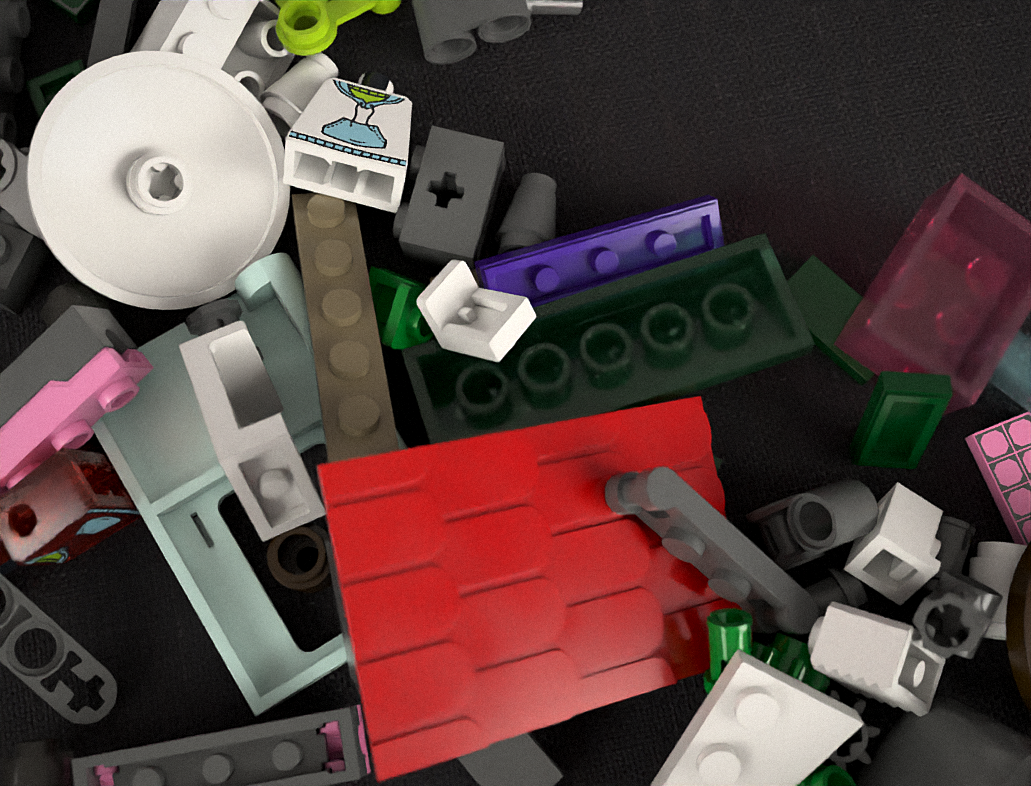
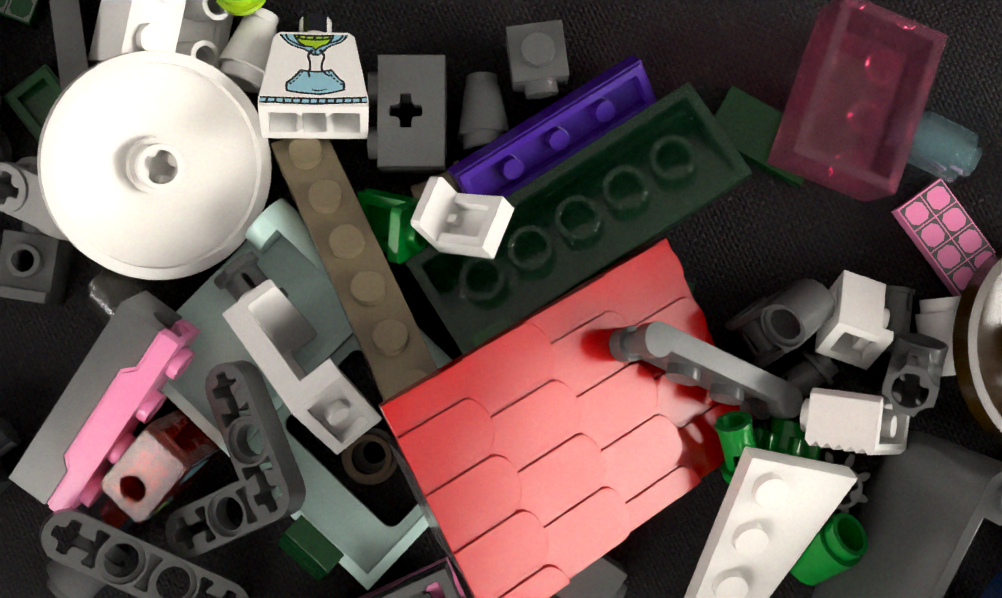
camera: 20 degrees left, 10 degrees up
(163, 553) = (254, 486): none -> dark grey beam
(201, 645) = (310, 548): none -> dark green tile
(604, 173) = (537, 59): none -> dark grey brick
(900, 419) = (836, 217): dark green tile -> none

